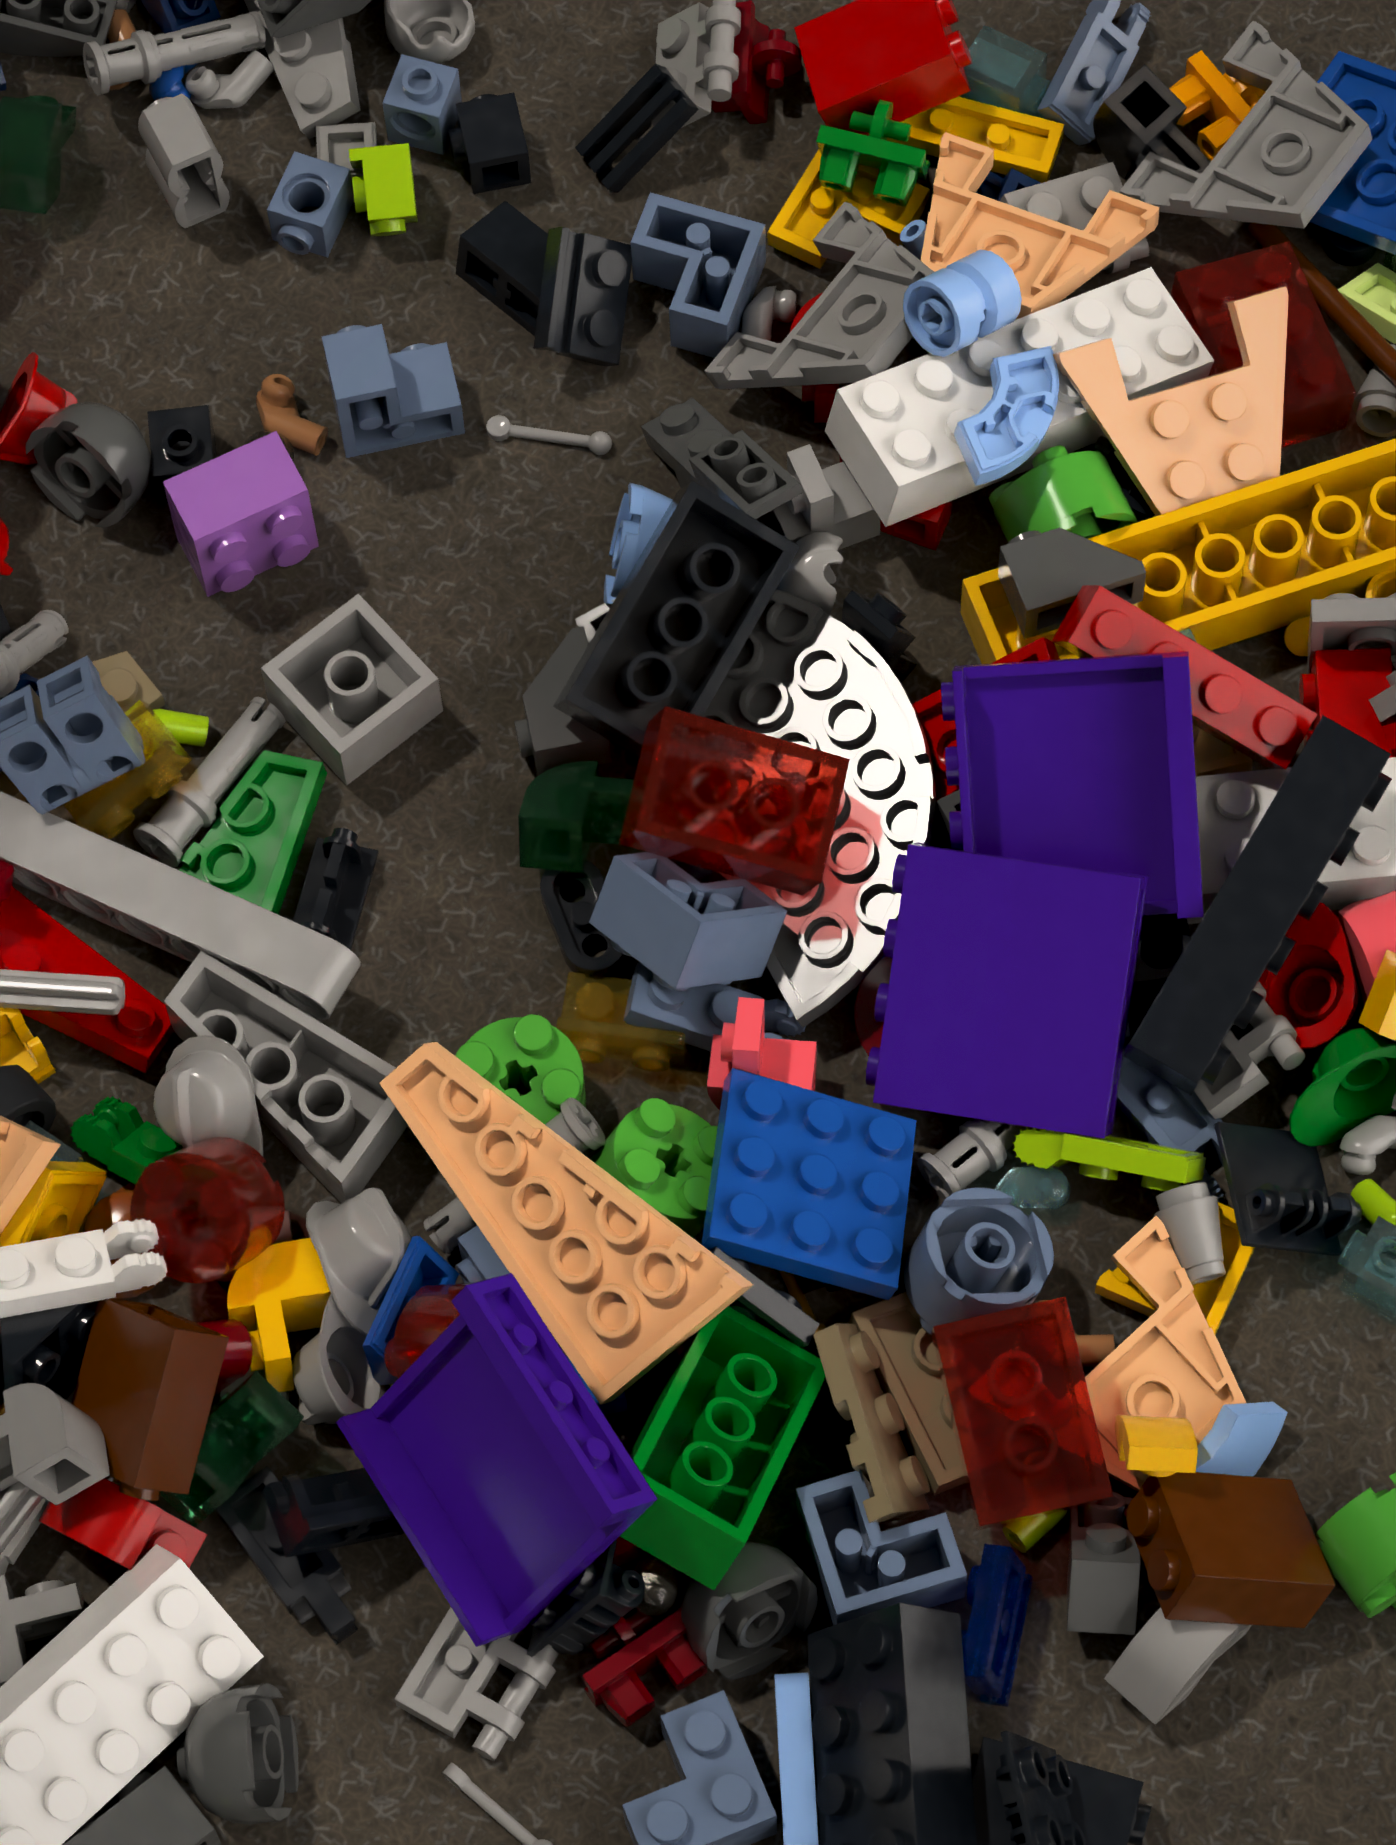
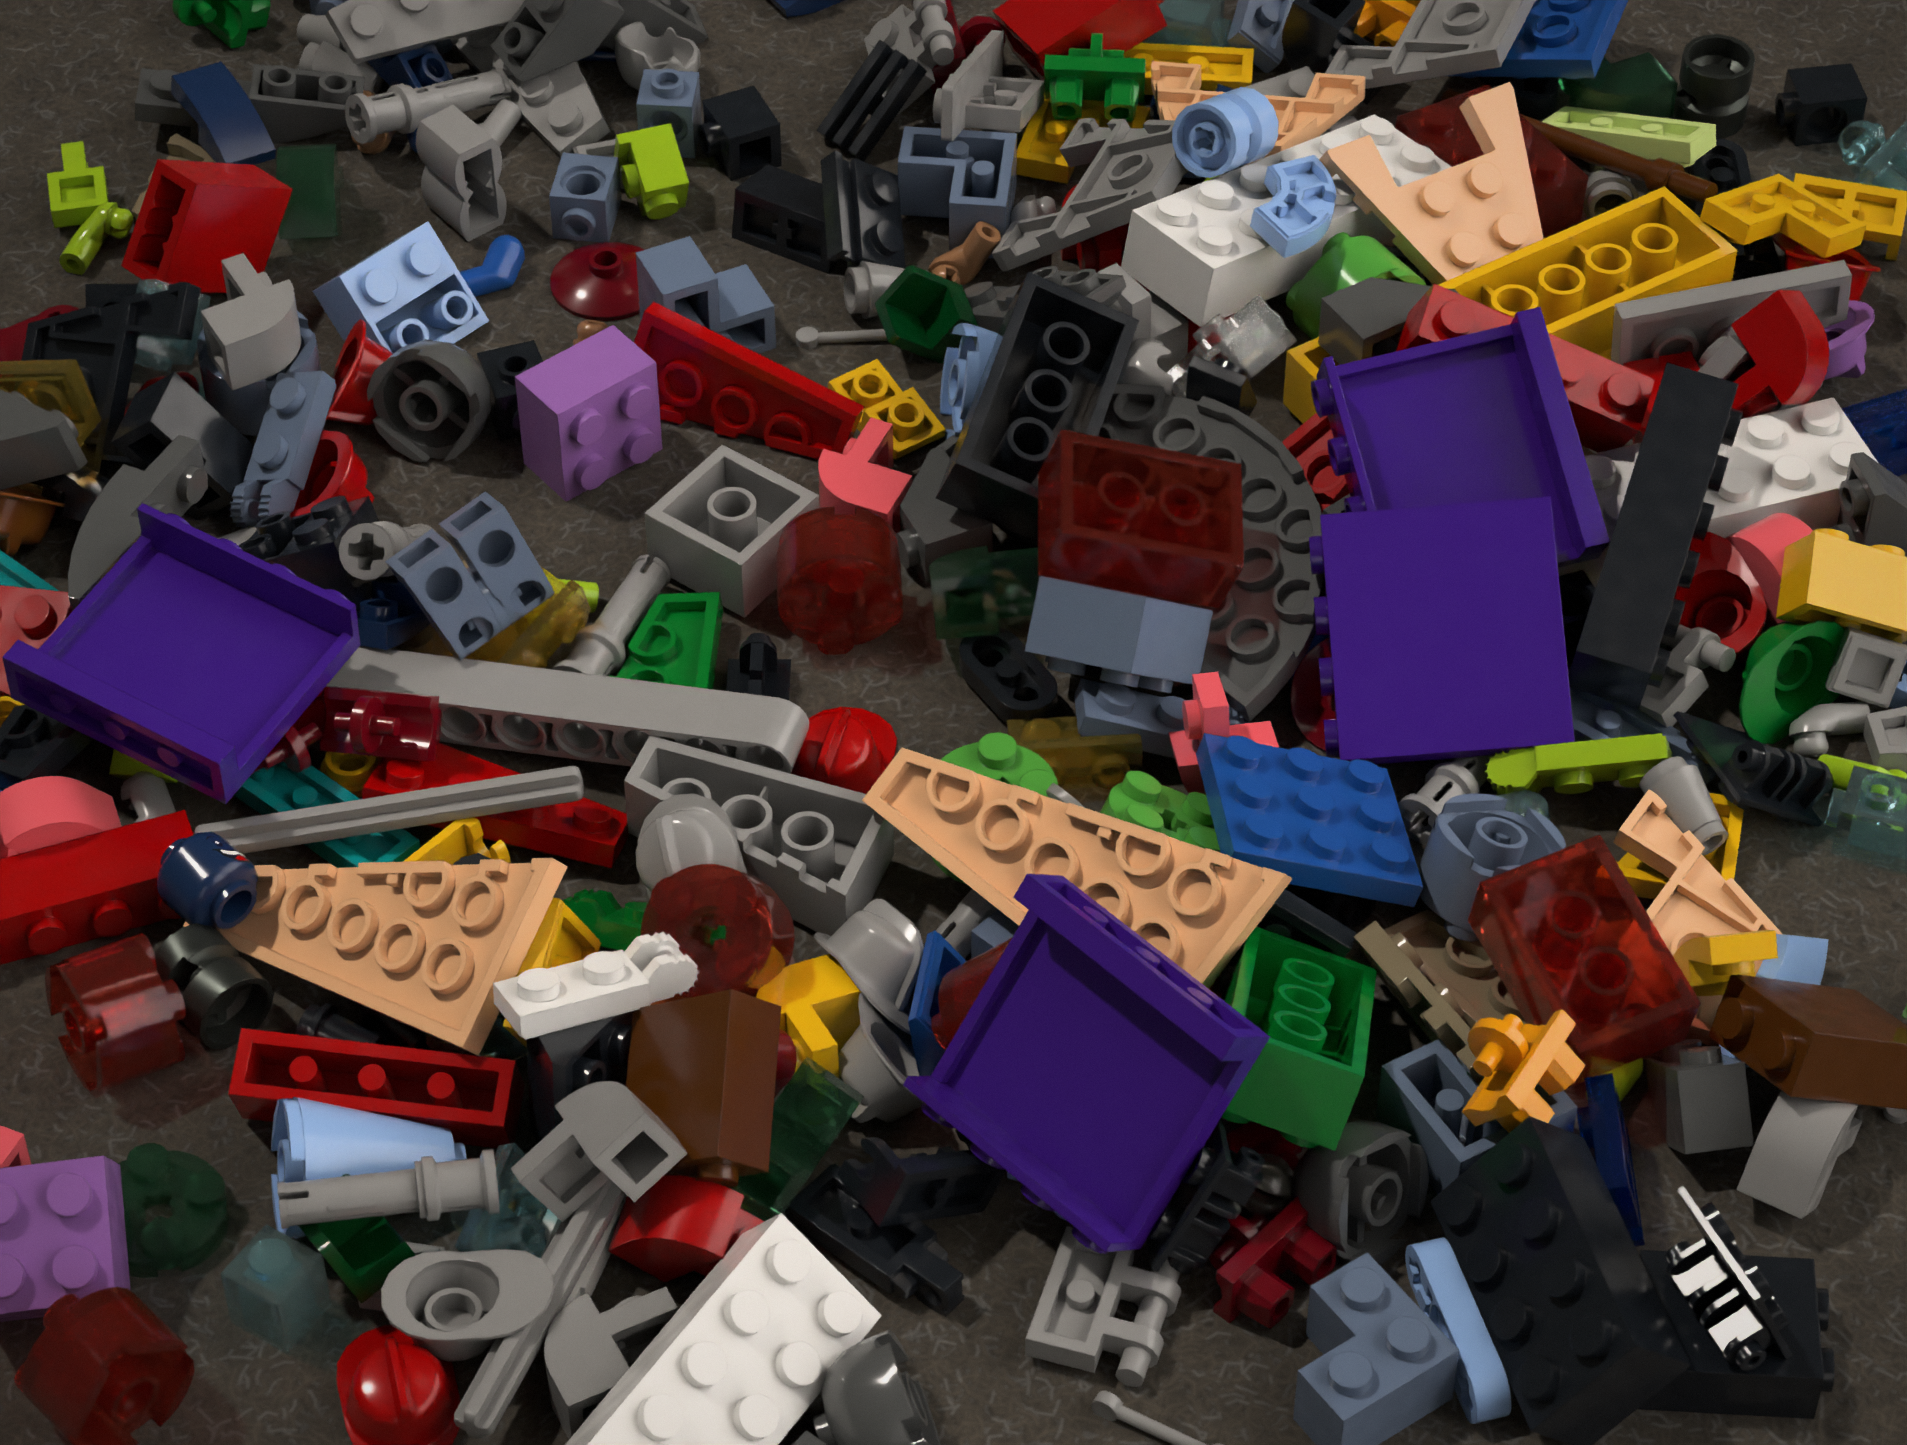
camera: 15 degrees left, 20 degrees down
(94, 314) = (404, 294): none -> light blue slope
(204, 280) = (498, 268): none -> blue arm
(296, 328) = (598, 281): none -> dark red dish
(400, 982) = (846, 748): none -> red piece
(405, 509) = (740, 391): none -> red wing
(438, 778) = (839, 578): none -> clear red brick
(490, 654) = (864, 475): none -> coral brick
(551, 546) = (884, 400): none -> yellow slope
(590, 386) = (865, 286): none -> light grey cone
(616, 439) = (922, 312): none -> dark green panel
(677, 364) = (967, 259): none -> medium nougat arm
(753, 161) = (983, 98): none -> light grey bracket
(908, 1535) = (1513, 1062): none -> light orange hips
(909, 565) = (1248, 339): none -> clear brick

